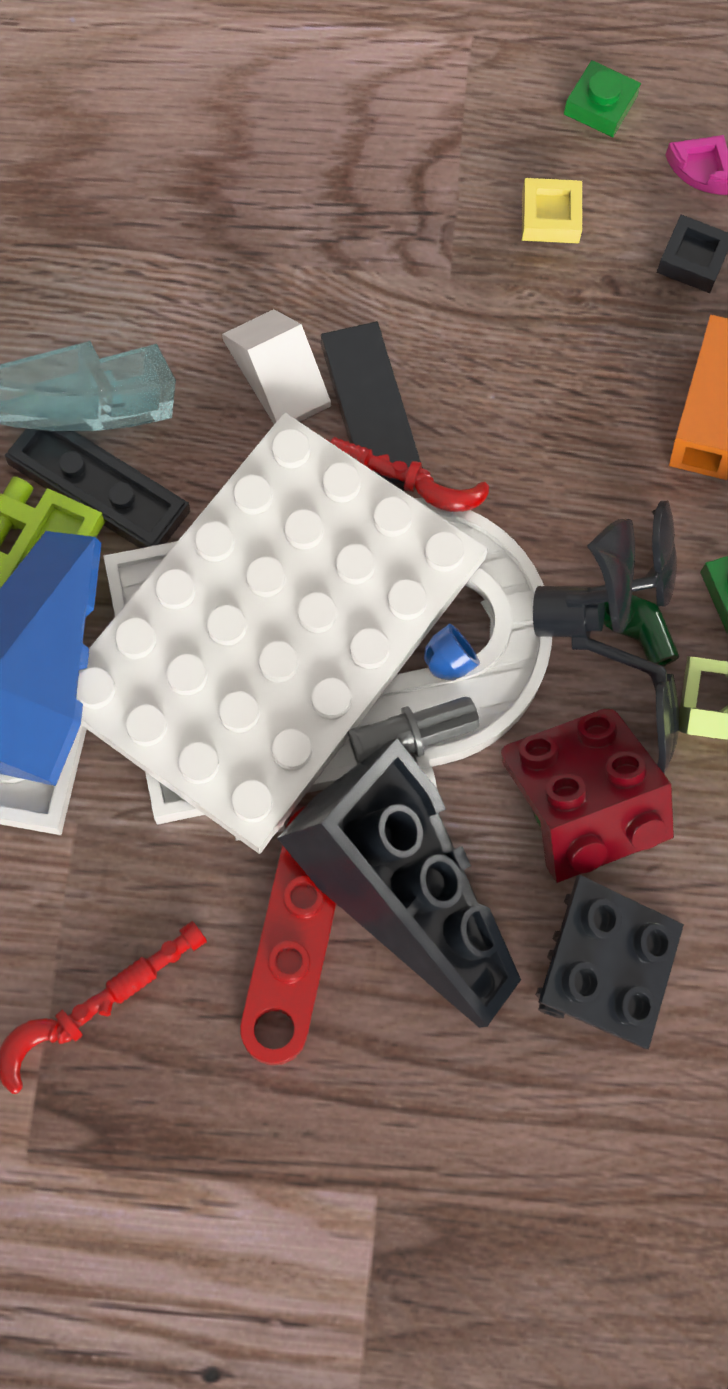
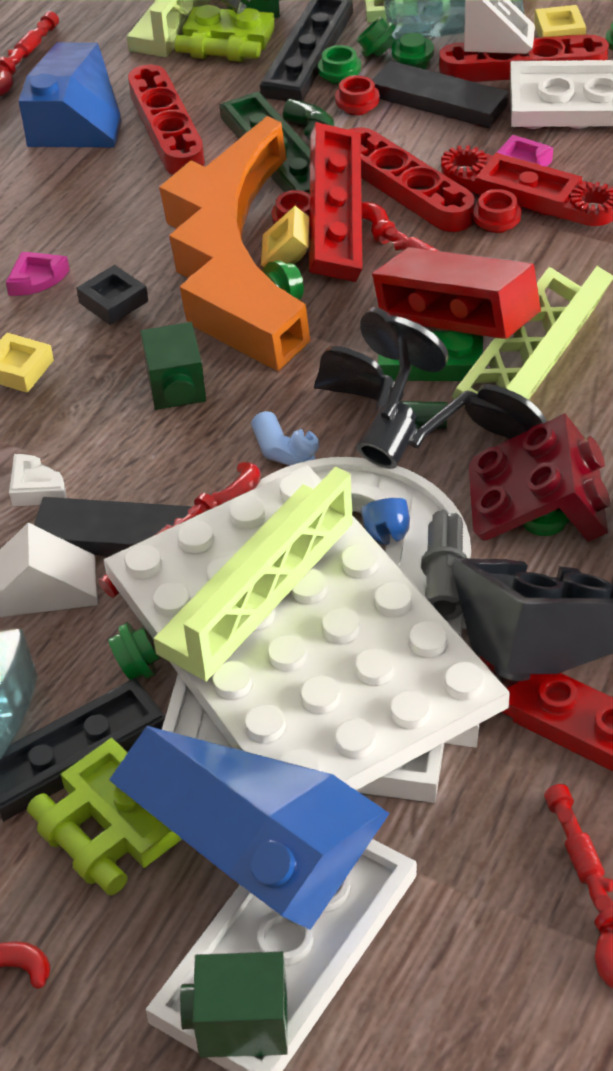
camera: 60 degrees left, 25 degrees down
(206, 482) = (134, 651): none -> green plate
(290, 560) = (257, 577): none -> yellowish green fence
(403, 305) = (33, 481): none -> white tile
(545, 508) = (280, 447): none -> light blue arm
(607, 360) = (173, 365): none -> dark green brick

